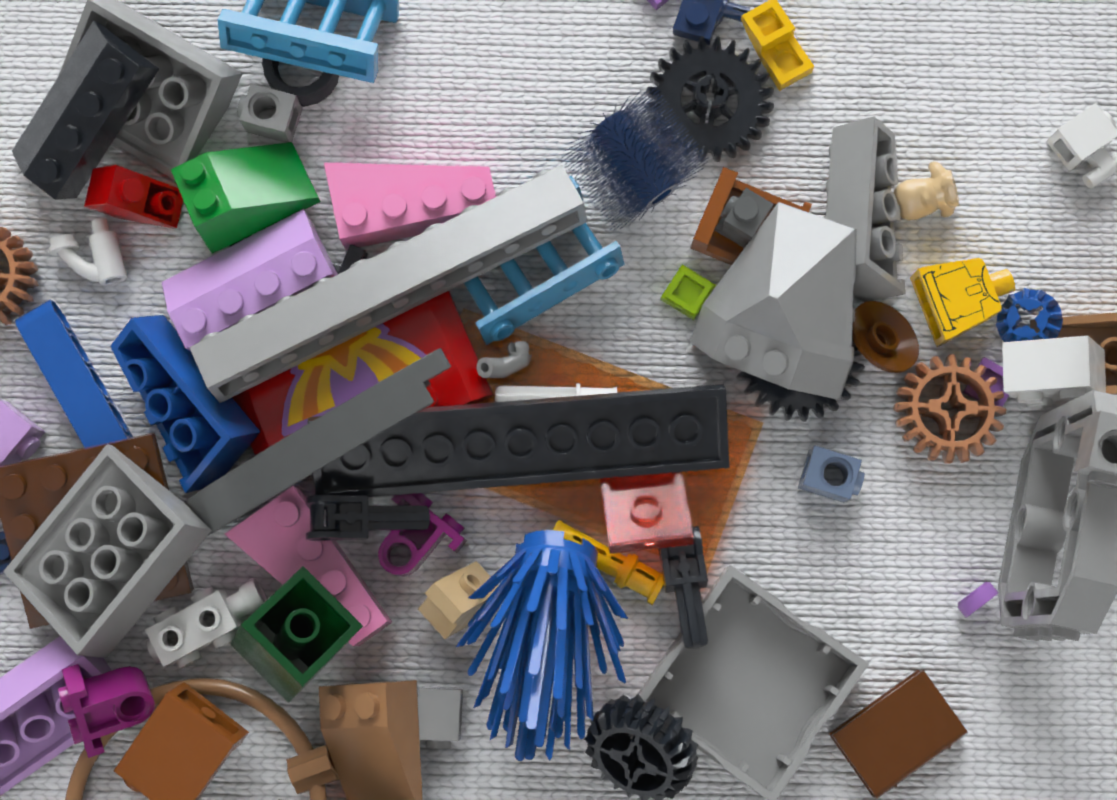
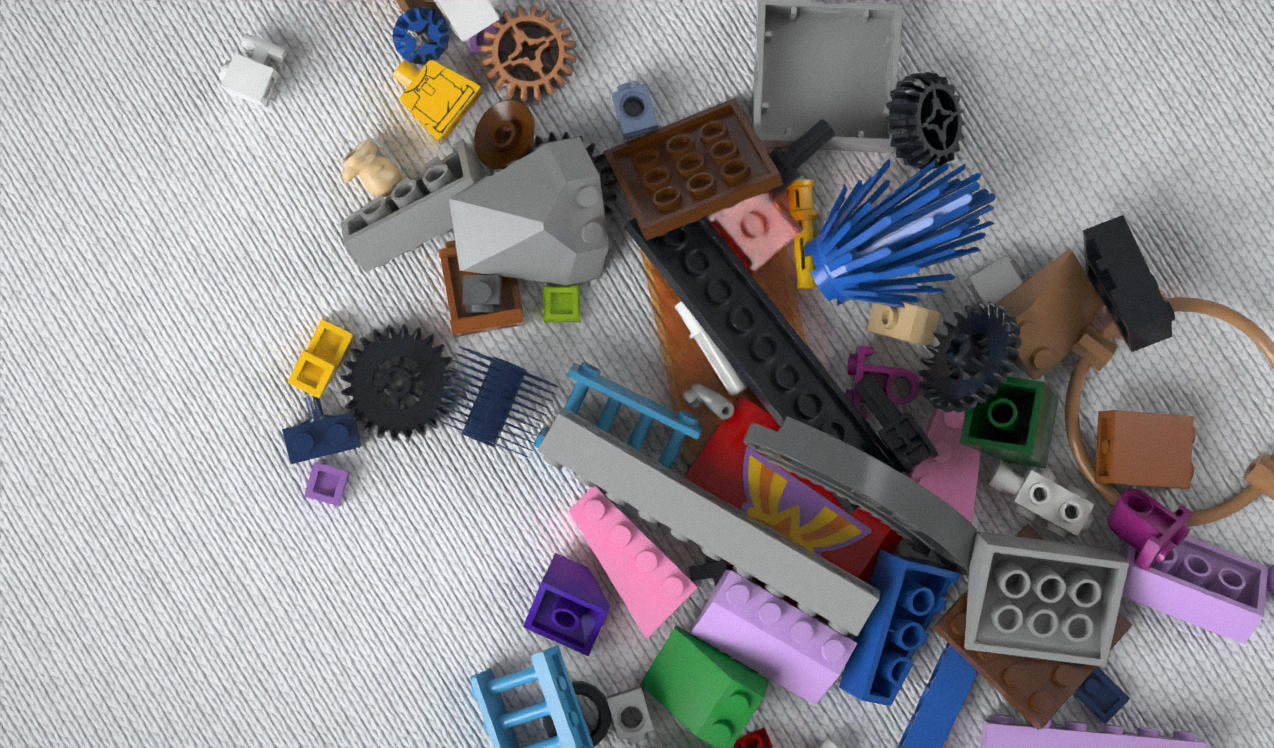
camera: 125 degrees left, 5 degrees up
(380, 629) = (967, 357): none -> black gear
(406, 119) = (568, 606): none -> dark purple slope
(737, 484) = (692, 169): none -> reddish brown plate

